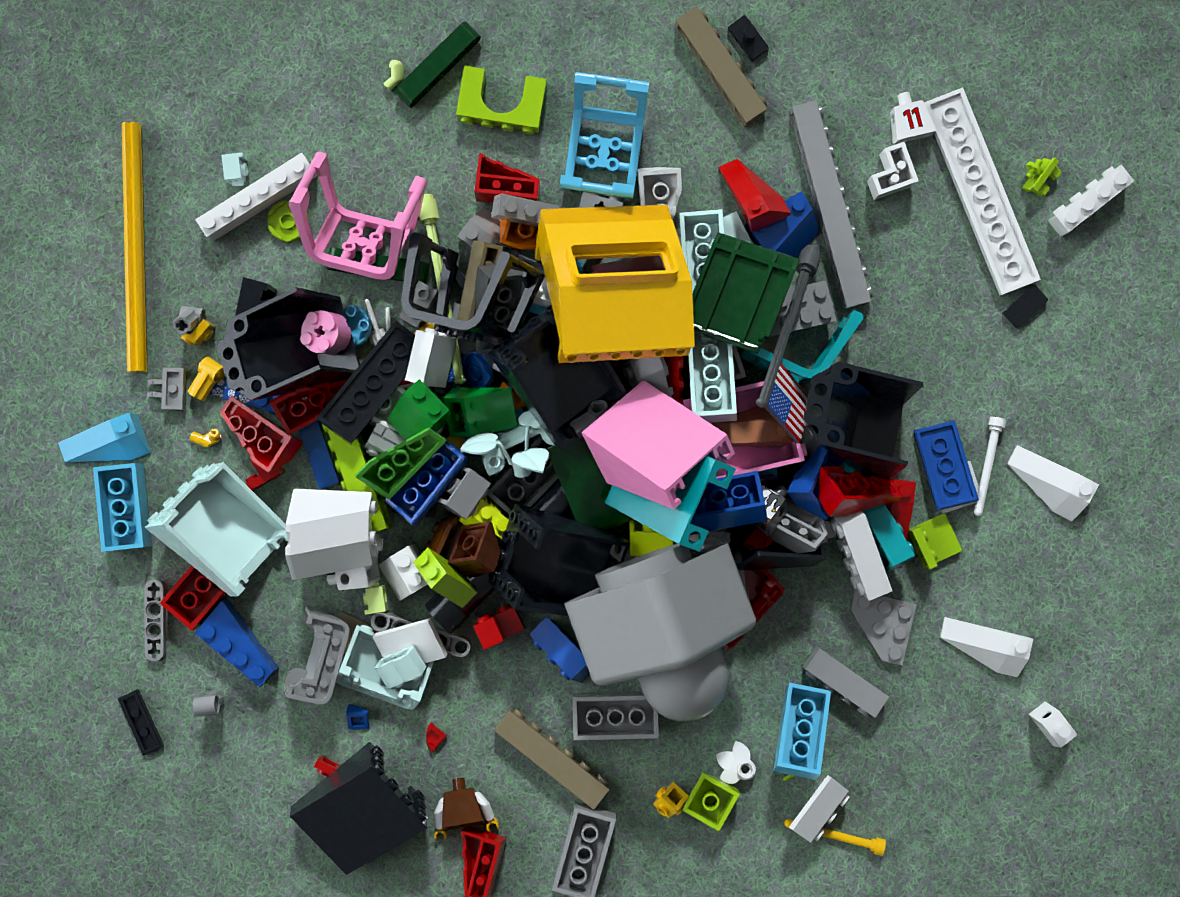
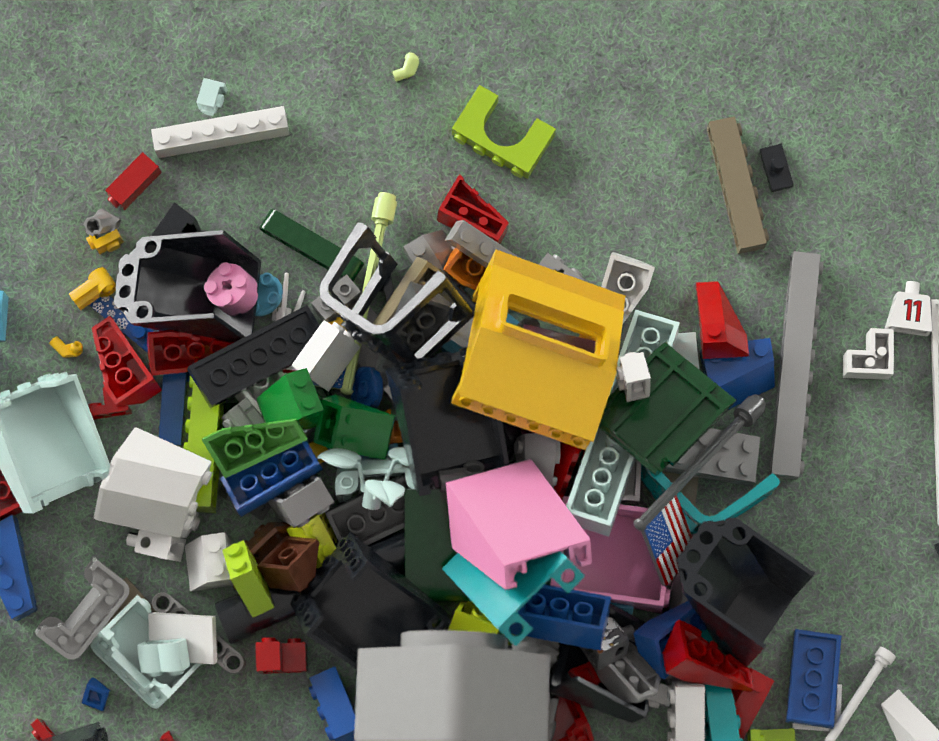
camera: 20 degrees right, 10 degrees down
(134, 247) = (77, 135): yellow axle -> none
(173, 388) = (55, 286): light grey hinge -> none
(199, 271) = (132, 181): none -> red brick
(281, 223) = (243, 175): lime tile -> none
(375, 599) = (167, 577): yellowish green brick -> none
(400, 229) = (345, 214): bright pink windscreen -> none
(437, 64) = (453, 73): dark green beam -> none
(634, 88) = (538, 237): medium azure windscreen -> none
(706, 274) = (633, 376): none -> white brick
(754, 429) = (624, 558): nougat wedge -> none

